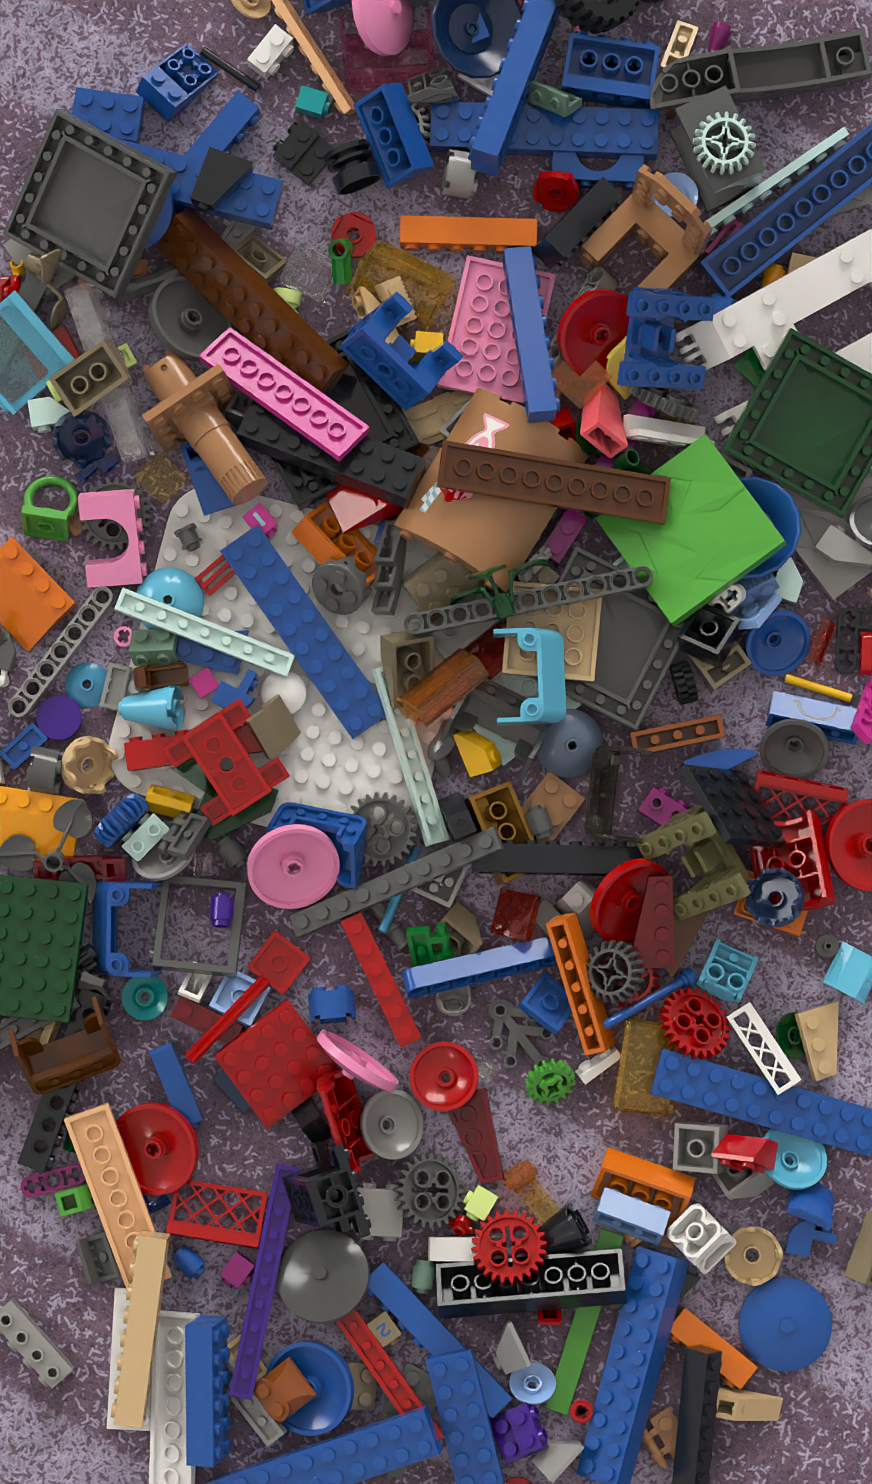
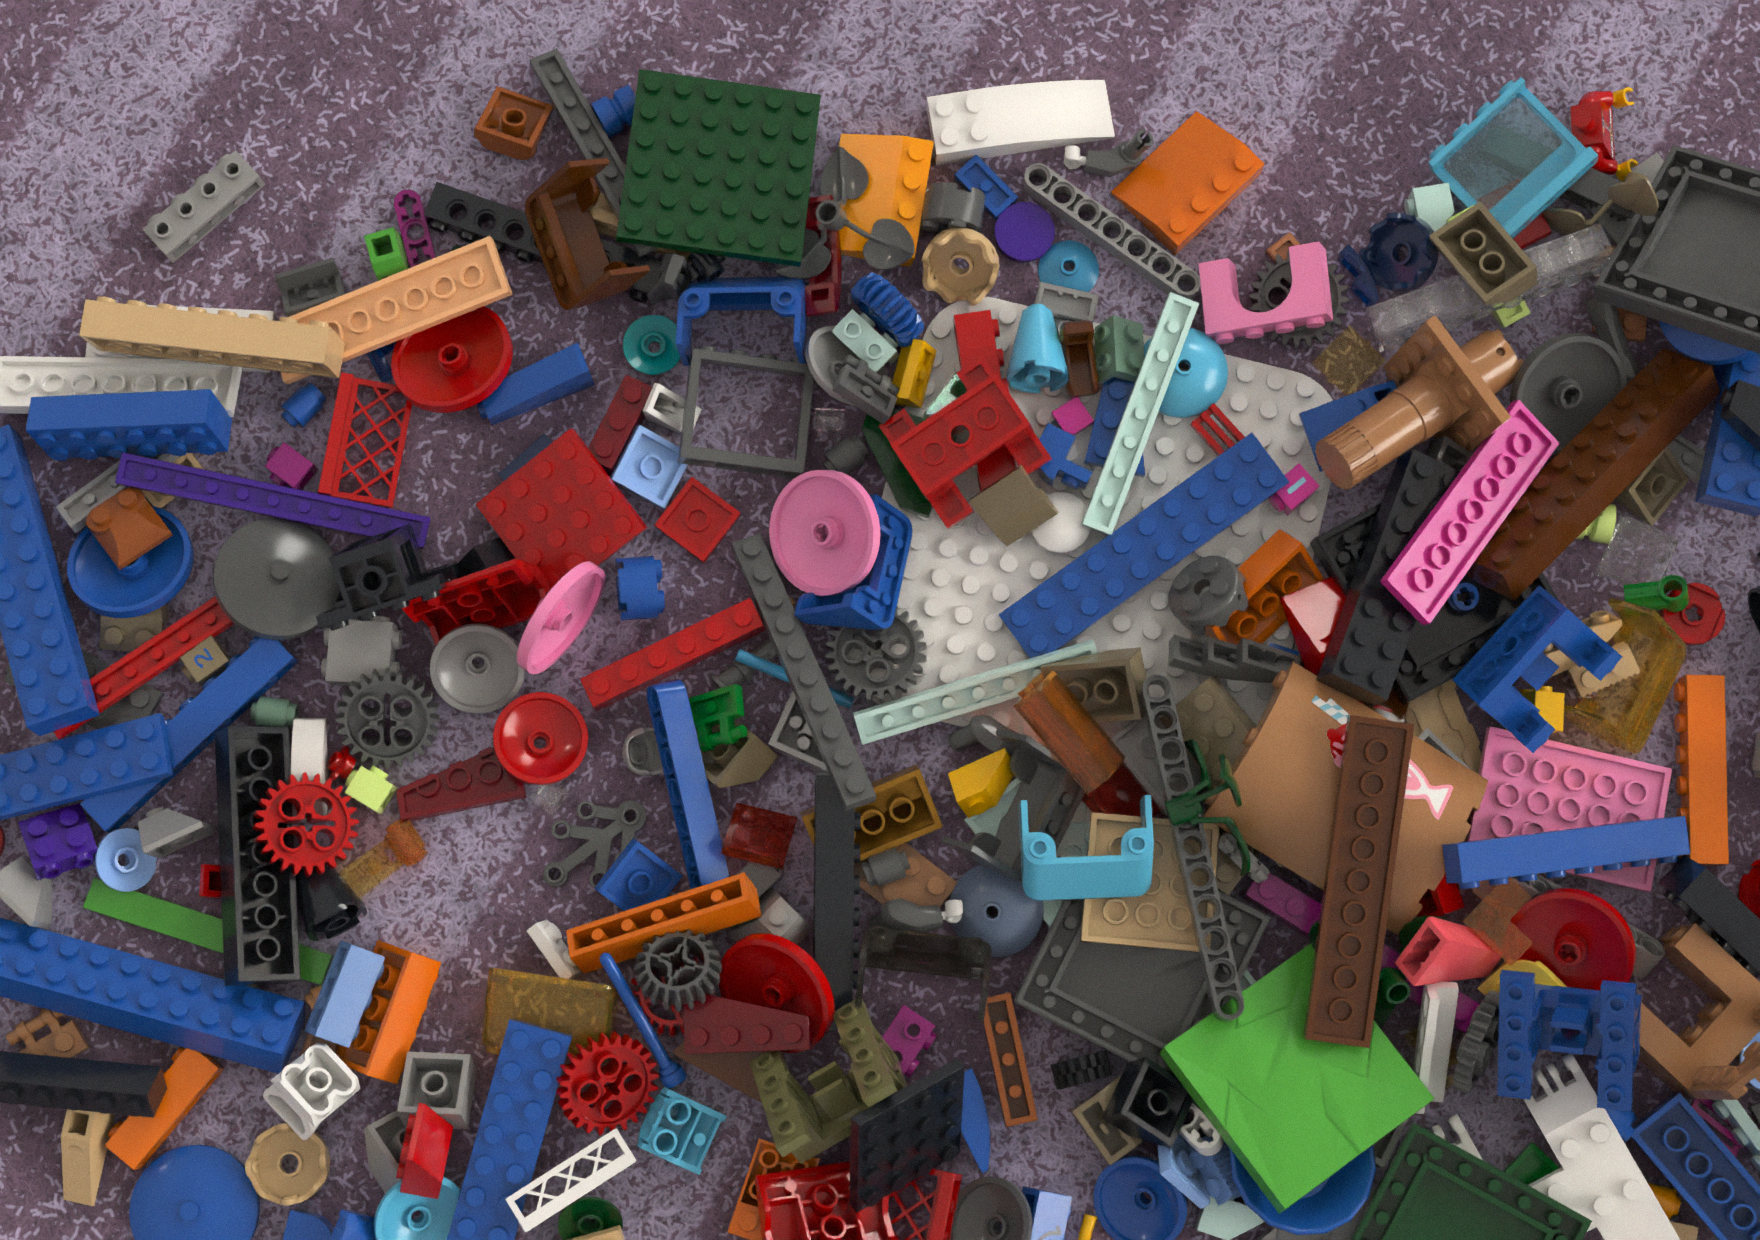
camera: 90 degrees right, 5 degrees down
(46, 521) = (1286, 207): bright green tile -> none
(117, 636) = (1134, 305): bright pink bush -> none
(189, 537) = (1269, 395): dark grey brick -> none
(221, 910) = (765, 438): dark purple brick -> none
(227, 1020) = (619, 446): red axle -> none
(341, 392) = (1471, 602): none -> blue bush
(457, 817) = (891, 753): black slope -> none
(550, 1081) = (531, 882): bright green gear -> none
(576, 804) = (908, 916): none -> dark grey arm
(584, 1416) = (78, 925): red cone -> none
(689, 1282) = (255, 1076): black slope -> none
(762, 890) = (783, 1174): dark blue plate -> none

